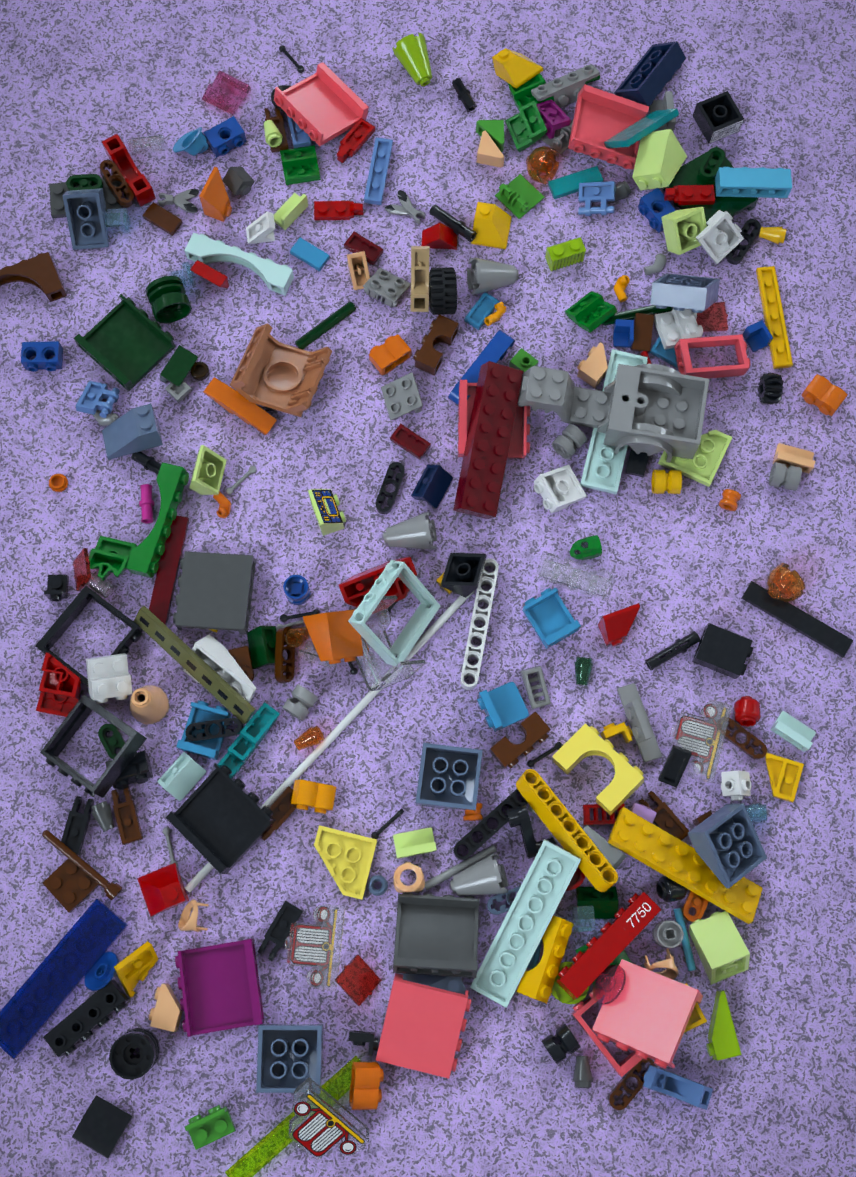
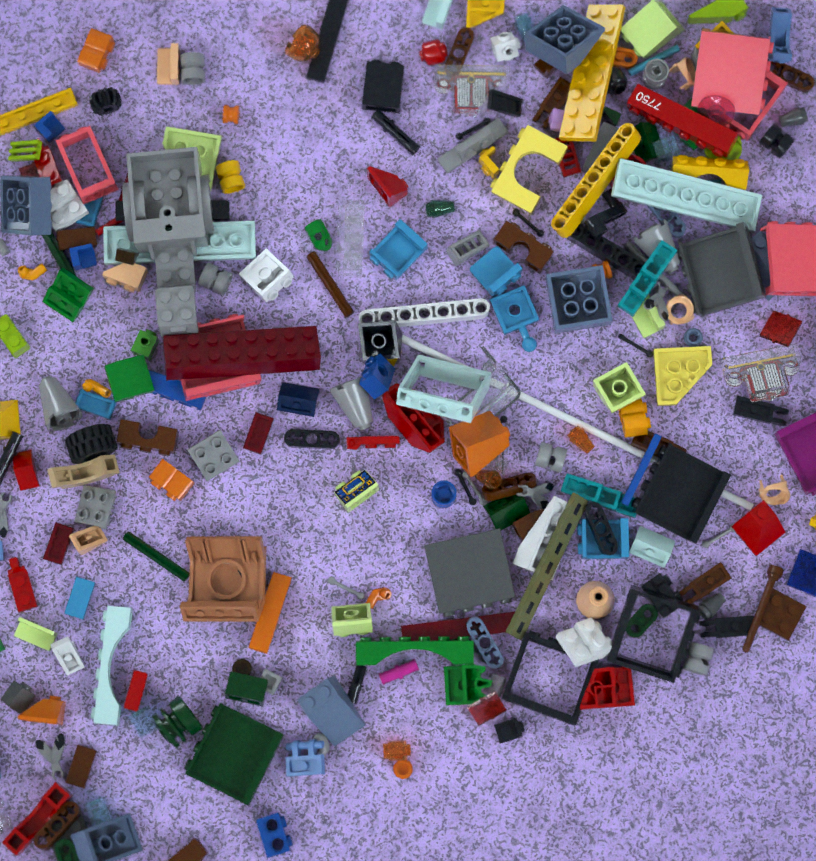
camera: 105 degrees left, 5 degrees up
(55, 784) = (698, 658): none -> light grey wheel
(75, 480) = (396, 750): none -> clear orange brick
(137, 584) = (487, 657): none -> sand blue beam
(256, 785) = (641, 469): none -> blue tile
(270, 678) = (536, 493): none -> light grey piece
(345, 789) = (618, 388): none -> yellowish green slope
(369, 540) = (372, 441): none -> red hinge
(423, 859) = (658, 301): none -> light grey piece
(429, 557) = (377, 376): none -> blue brick
(448, 722) = (511, 323): none -> dark azure plate
(449, 852) = (647, 278): none -> teal slope
(494, 338) = (129, 378): none -> green slope
(535, 546) = (330, 284): none -> reddish brown axle
(611, 366) = (126, 256): none -> dark brown slope
(632, 874) = (611, 116): none -> dark green slope
(661, 744) = (486, 121): none -> black hinge
(722, 322) = (46, 165): none -> red hinge
(741, 302) = (16, 149): none -> lime tile

